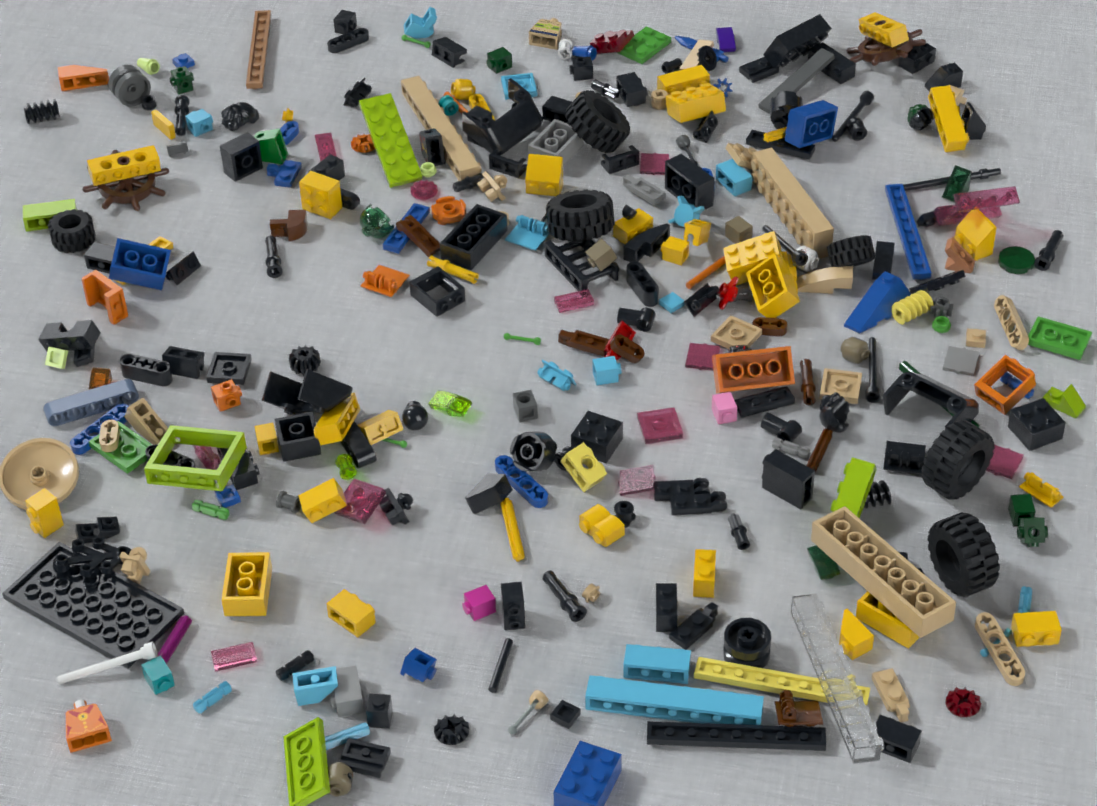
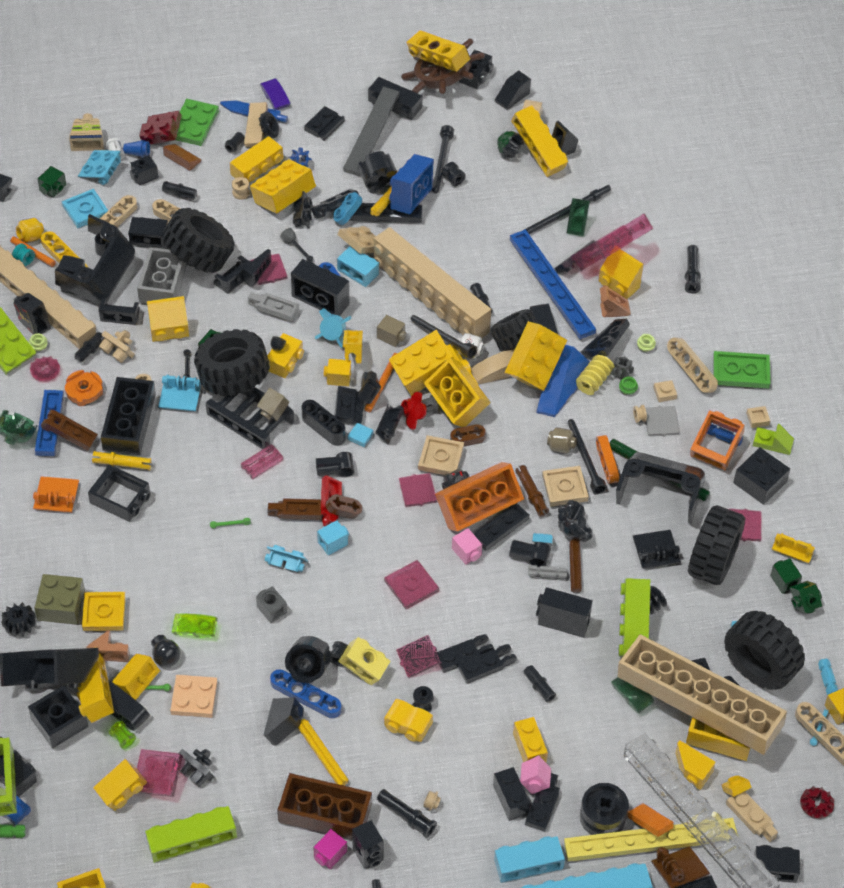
camera: 25 degrees left, 10 degrees up
(266, 438) = (24, 727): yellow brick -> none
(288, 501) = (82, 795): dark grey bush -> none
(346, 354) = (59, 599): none -> olive brick
(364, 556) = (191, 833): none -> lime brick
(368, 401) = (111, 652): none -> nougat slope
(379, 373) = (103, 611): none -> yellow plate
(423, 456) = (194, 696): none -> light nougat plate
(489, 564) = (323, 805): none -> reddish brown brick
(548, 58) = (101, 165): none -> medium azure hinge
(555, 89) = (121, 207): none -> tan beam
(599, 434) = (359, 618): black brick -> none
(618, 65) = (181, 156): none -> dark orange slope
(631, 89) = (208, 184): black brick -> none
(638, 159) = (256, 268): none -> black slope
(646, 243) = (305, 372): black slope -> none
(672, 277) = (348, 405): none -> black plate
(695, 266) = (369, 387): none -> black piece
(695, 598) = (535, 775): none -> bright pink brick
(721, 130) = (330, 204): none -> black hinge
(750, 128) = (348, 208): none -> dark azure plate
(788, 665) = (650, 820): none -> orange tile
(797, 41) = (355, 84): black brick -> none
(802, 420) = (538, 537): none -> medium azure tile
(834, 220) = (477, 290): none -> black pin
(858, 274) = (536, 356): none -> yellow brick
(886, 662) = (736, 785): none -> yellow plate
(891, 370) = (607, 459): none -> orange beam
(941, 348) = (639, 413): none -> tan bush
(975, 295) = (646, 342): none -> yellowish green plate
(1016, 259) = (666, 288): dark green tile -> none
(1057, 378) = (758, 417): none -> tan plate

